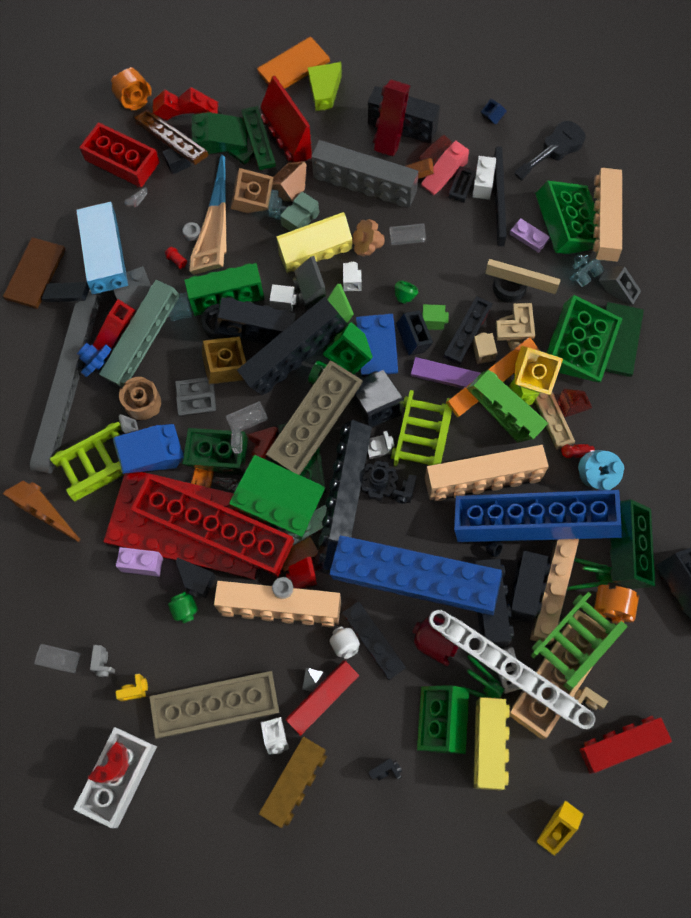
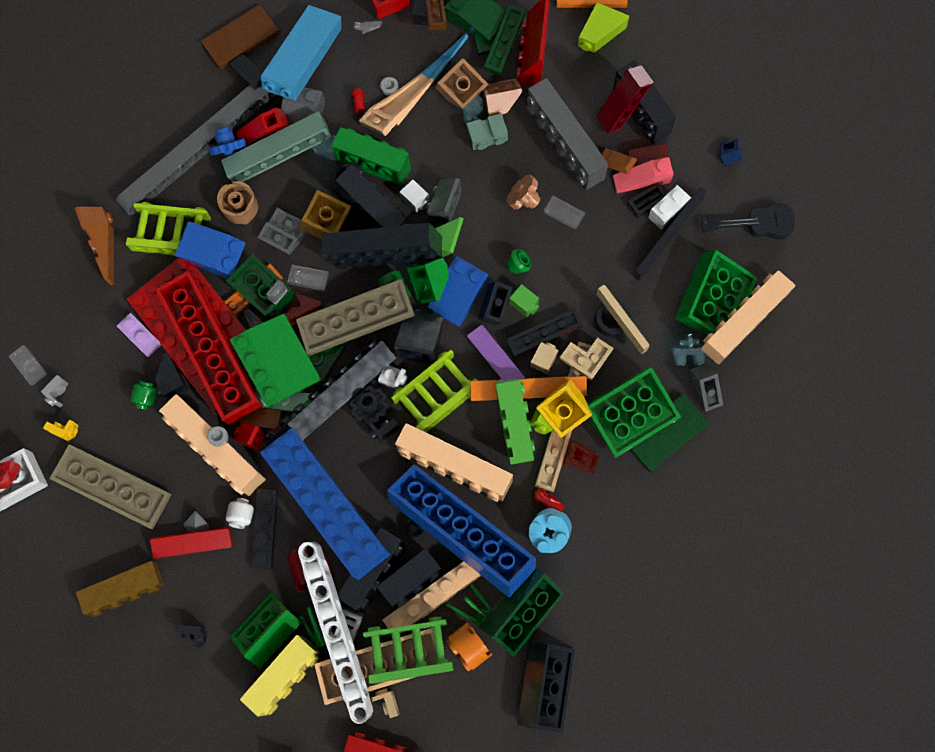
camera: 40 degrees right, 5 degrees up
(128, 424) = (213, 218): light grey slope -> none
(274, 736) = (134, 543): white bracket -> none
(318, 239) = (476, 167): light yellow slope -> none
(351, 277) = (485, 217): white brick -> none
(529, 235) = (667, 286): lavender plate -> none

